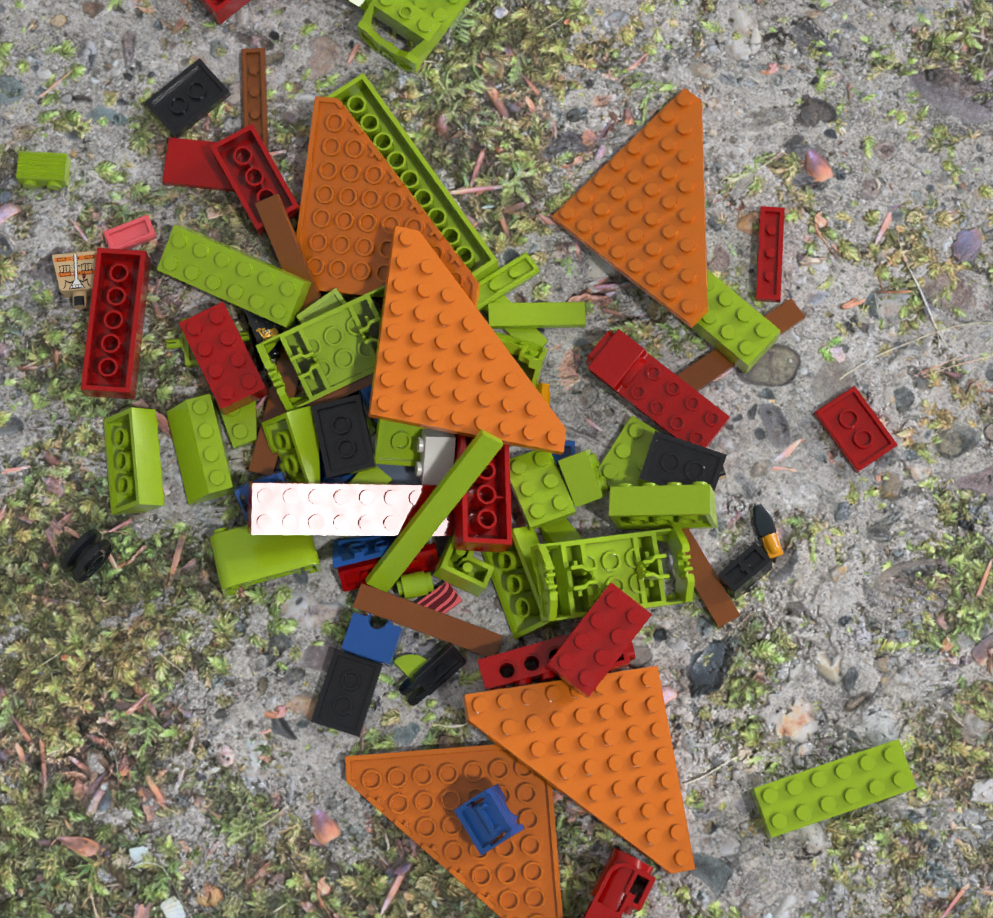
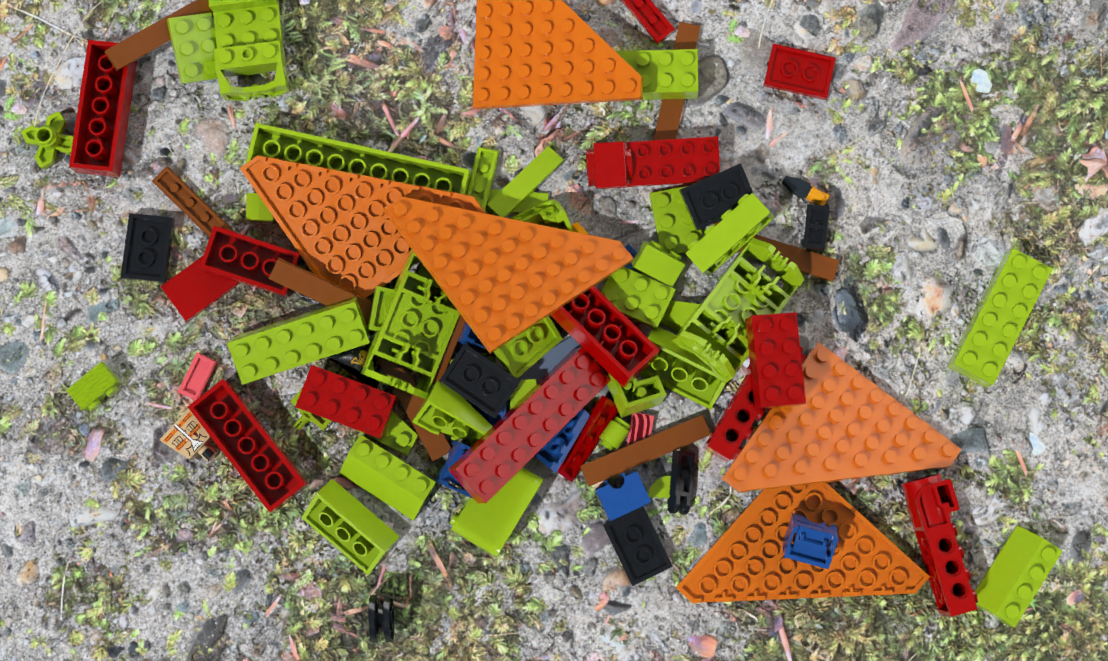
camera: 45 degrees left, 5 degrees up
(298, 144) = (256, 209): none -> lime piece
(434, 510) = (589, 374): lime tile -> none
(436, 456) = (553, 339): white brick -> none

